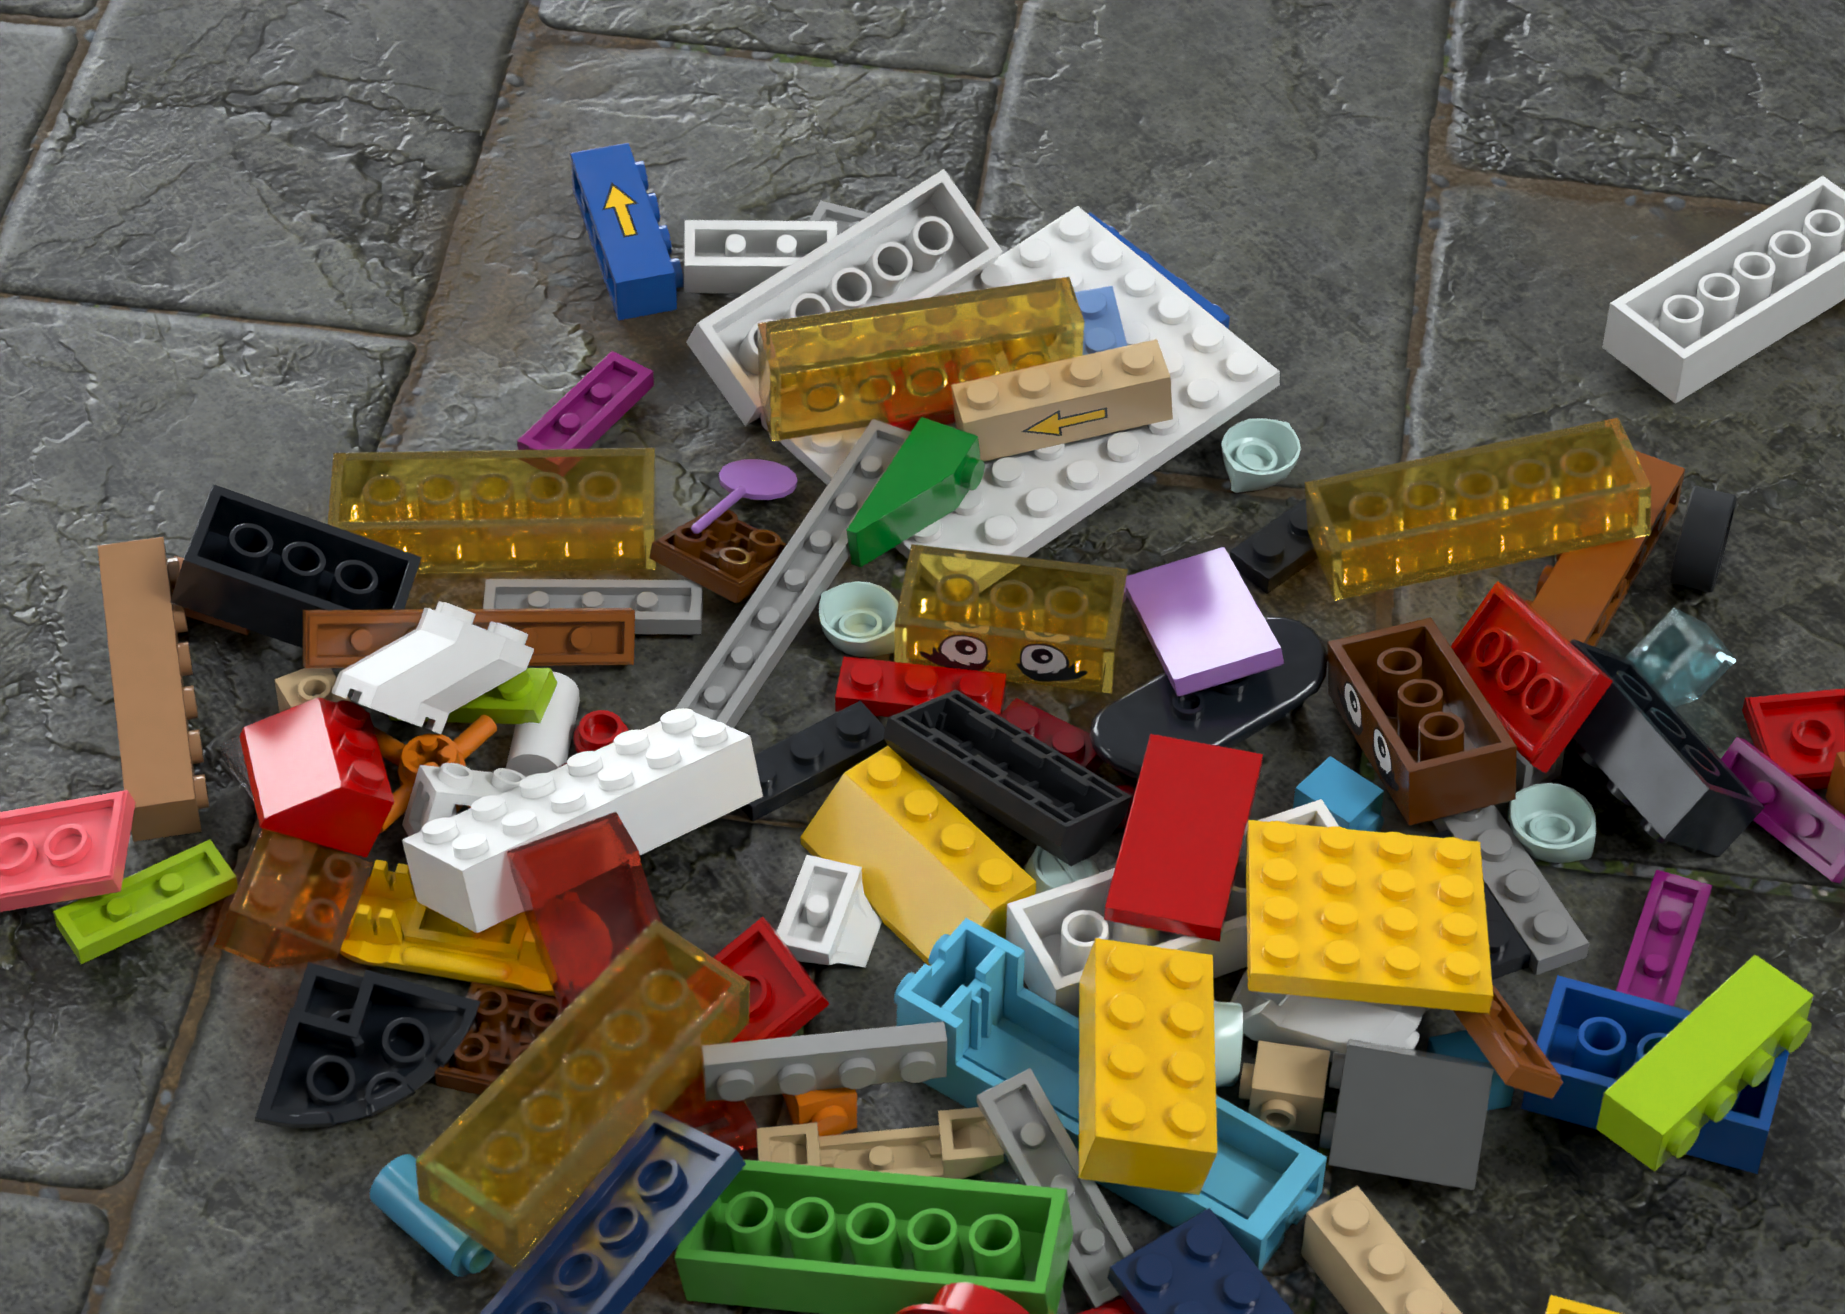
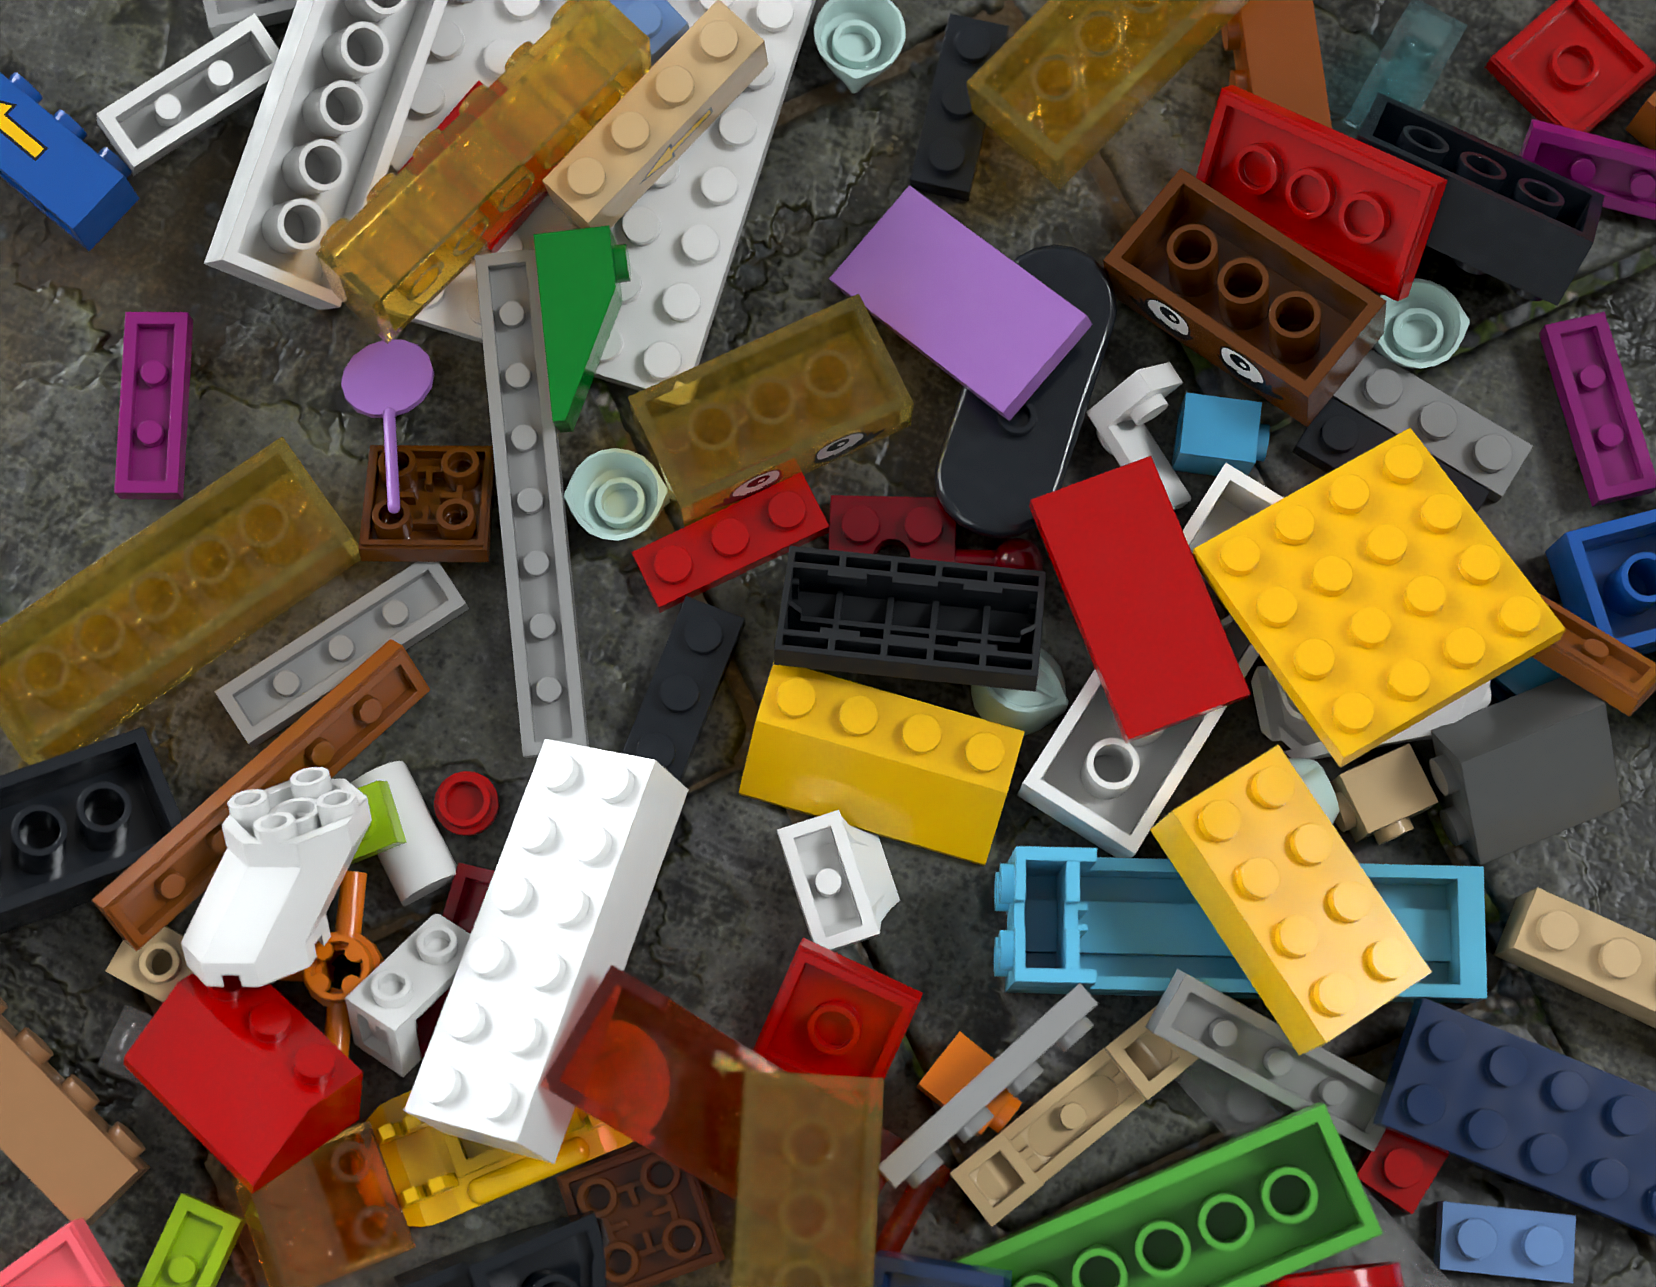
camera: 35 degrees left, 30 degrees up
(1287, 750) = (1122, 418): none -> white bracket

